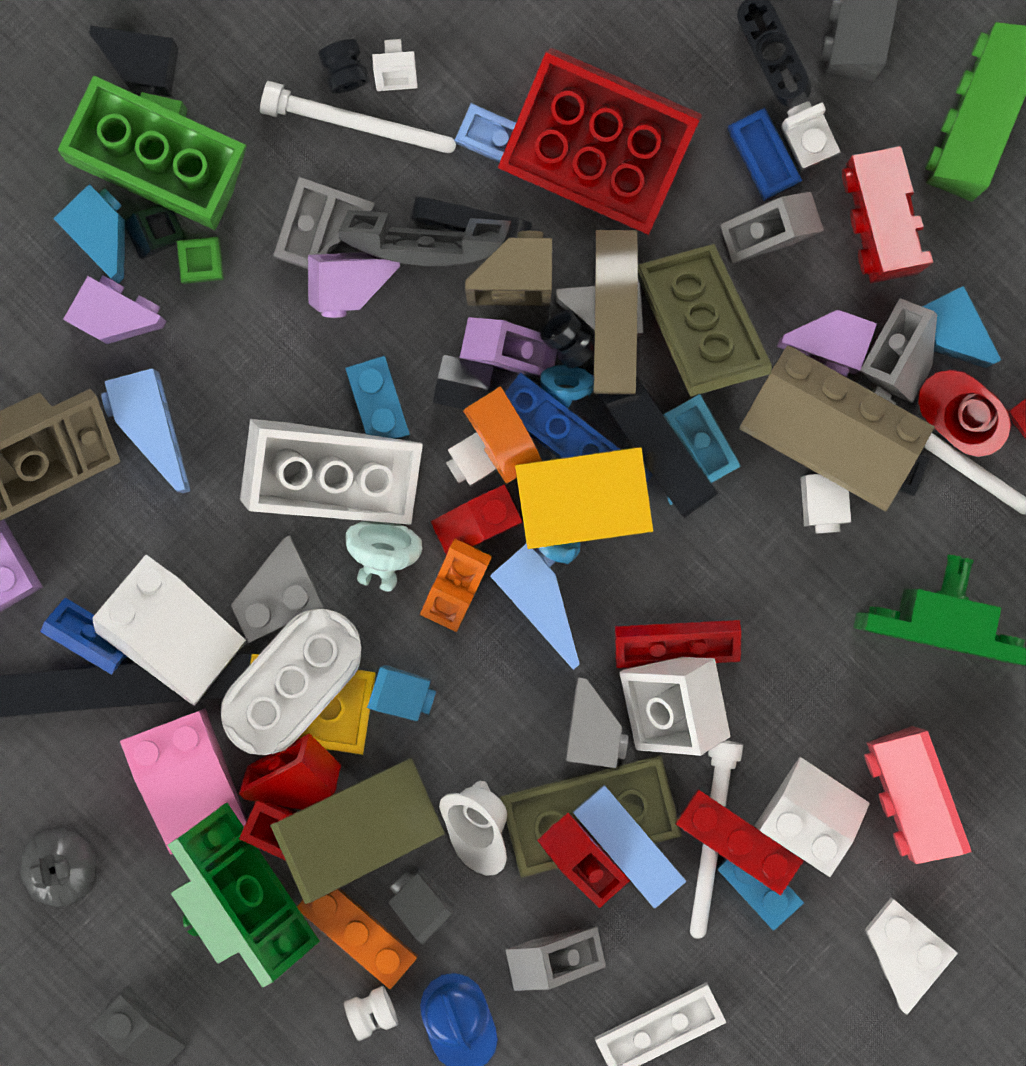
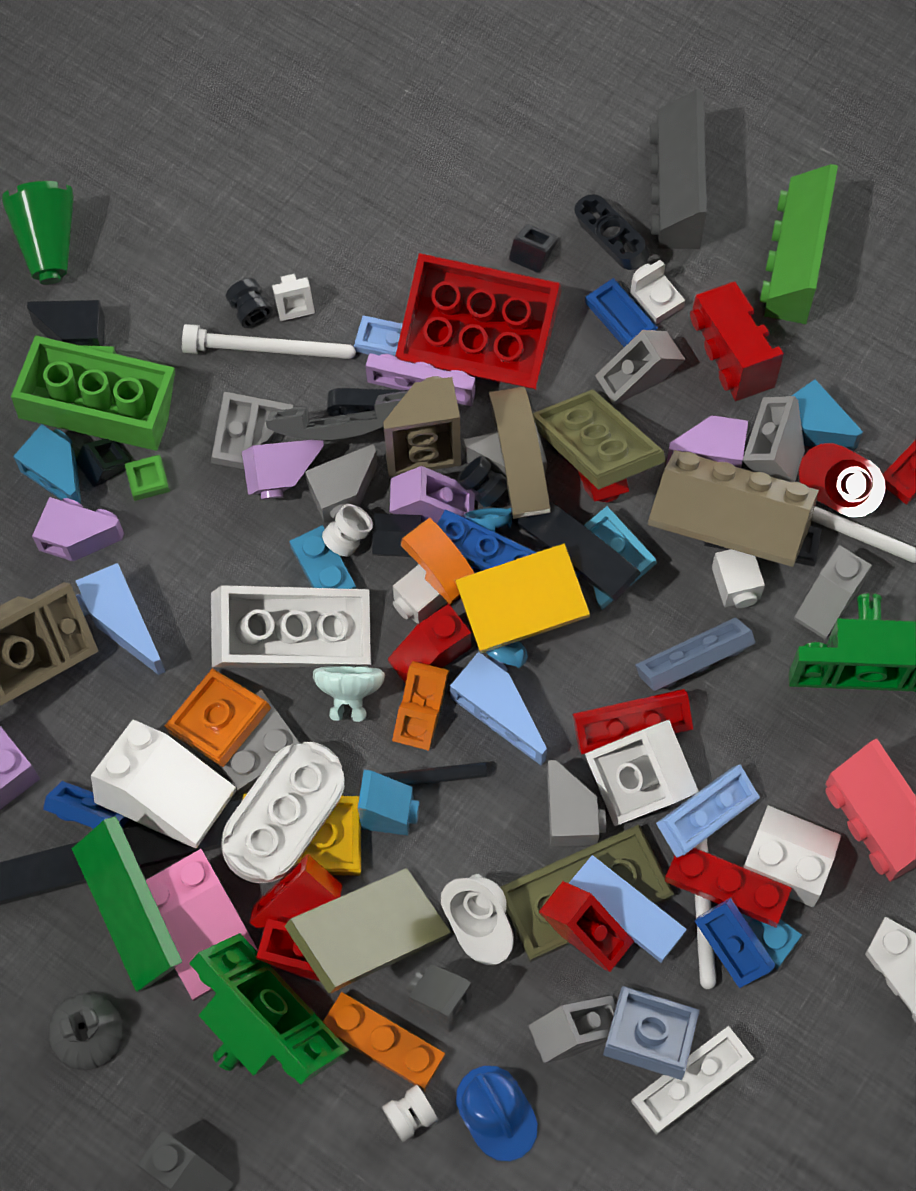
camera: 10 degrees left, 20 degrees down
(113, 756) = (126, 904): none -> green tile
(238, 559) = (217, 717): none -> orange tile
(410, 370) = (346, 531): none -> white wheel
(413, 312) = (342, 481): none -> light grey slope
(451, 660) = (439, 774): none -> black bar
(523, 197) = (401, 375): none -> lavender plate
(628, 979) = (651, 1033): none -> sand blue tile
(680, 49) = (532, 248): none -> black slope
(732, 903) = (735, 943): none -> blue plate
(735, 761) = (707, 810): none -> light blue tile
(760, 580) = (695, 654): none -> sand blue plate
(924, 537) = (832, 592): none -> light grey slope

